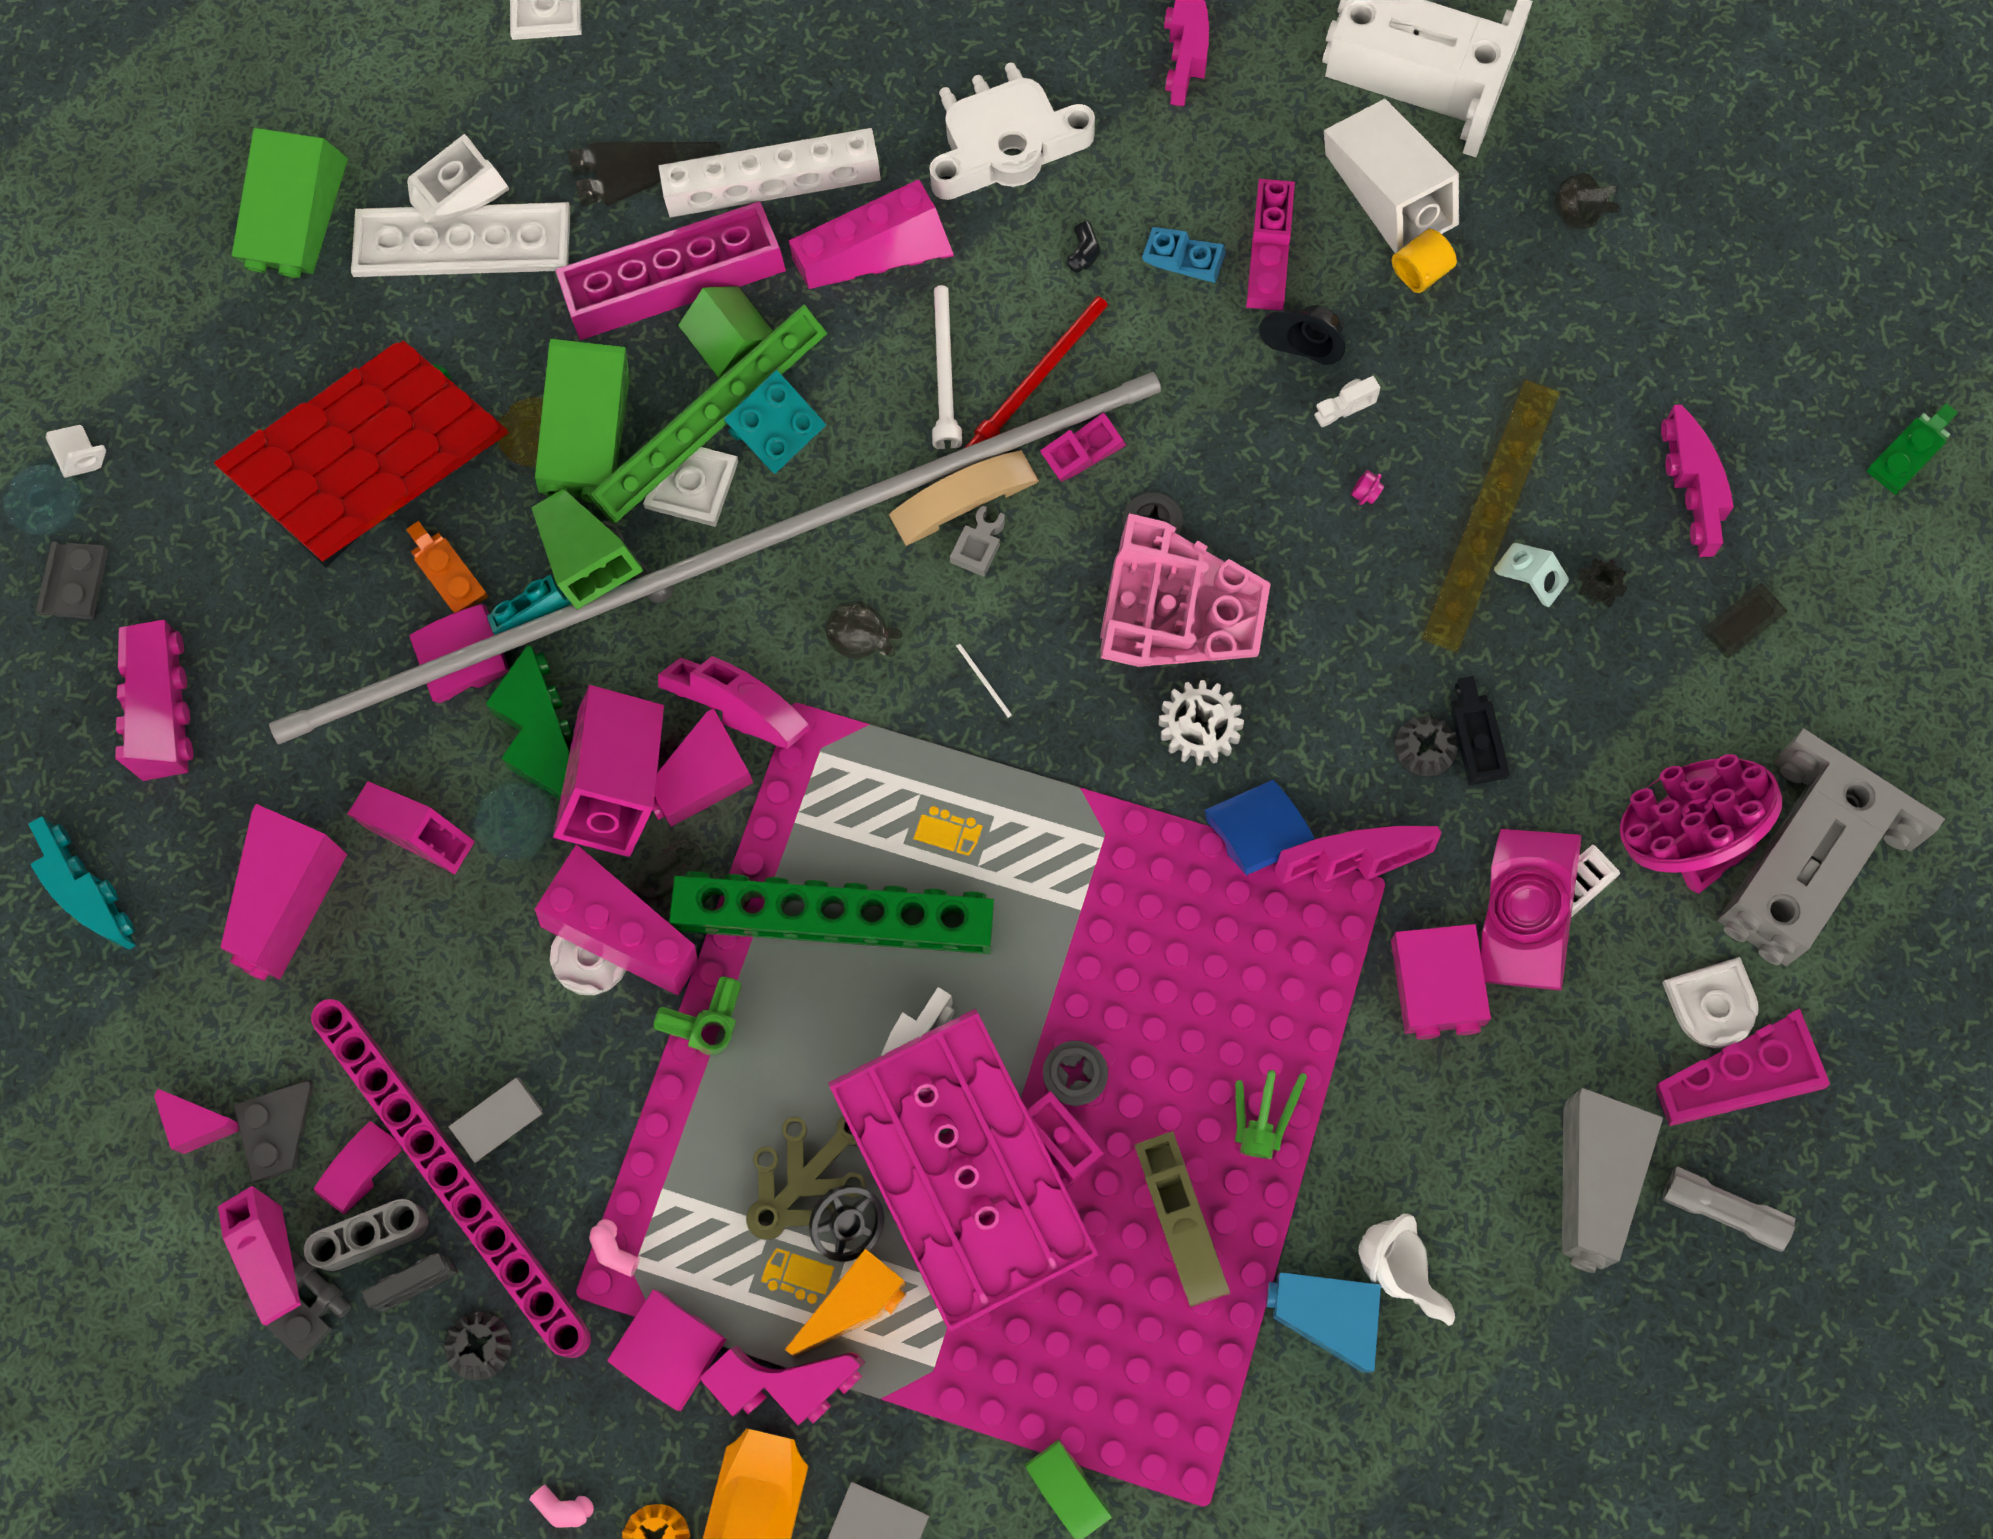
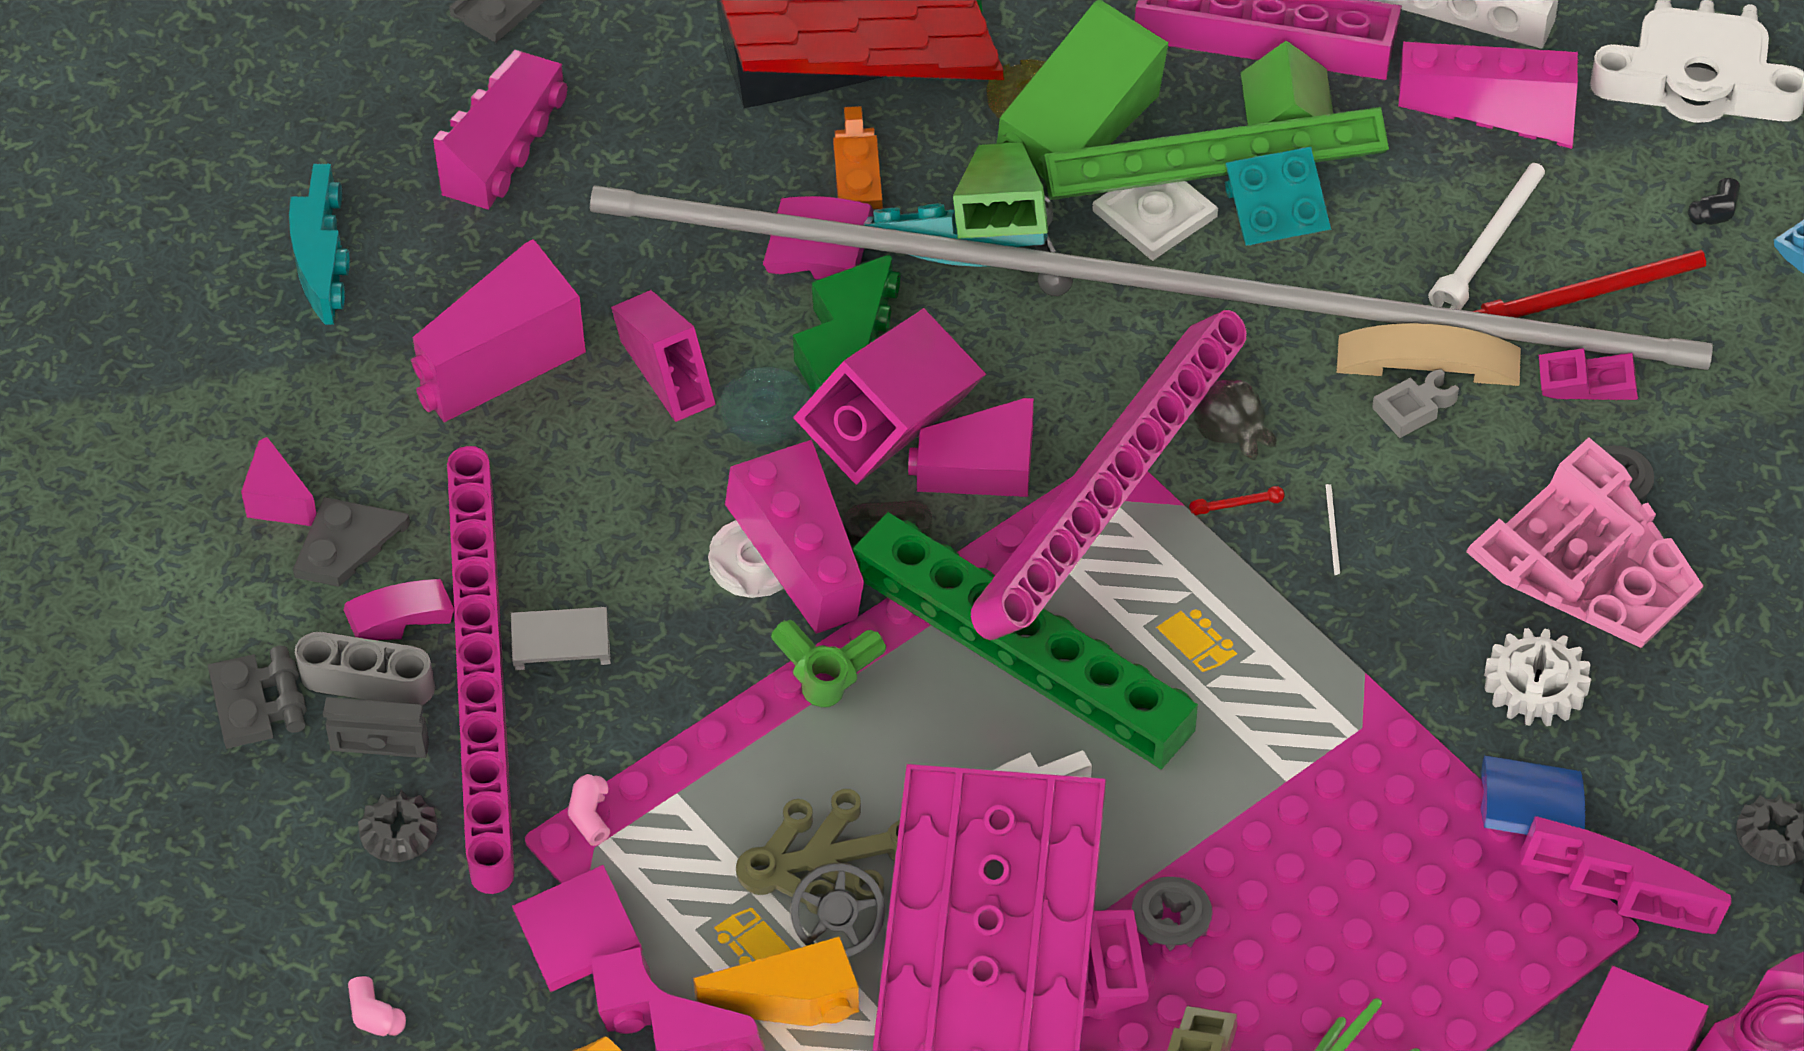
camera: 30 degrees right, 20 degrees down
(261, 1252) = (258, 618): dark pink slope -> none
(742, 698) = (1065, 400): dark pink slope -> none
(814, 749) = (1107, 477): none -> dark pink beam
(926, 677) = (1200, 506): none -> red hinge

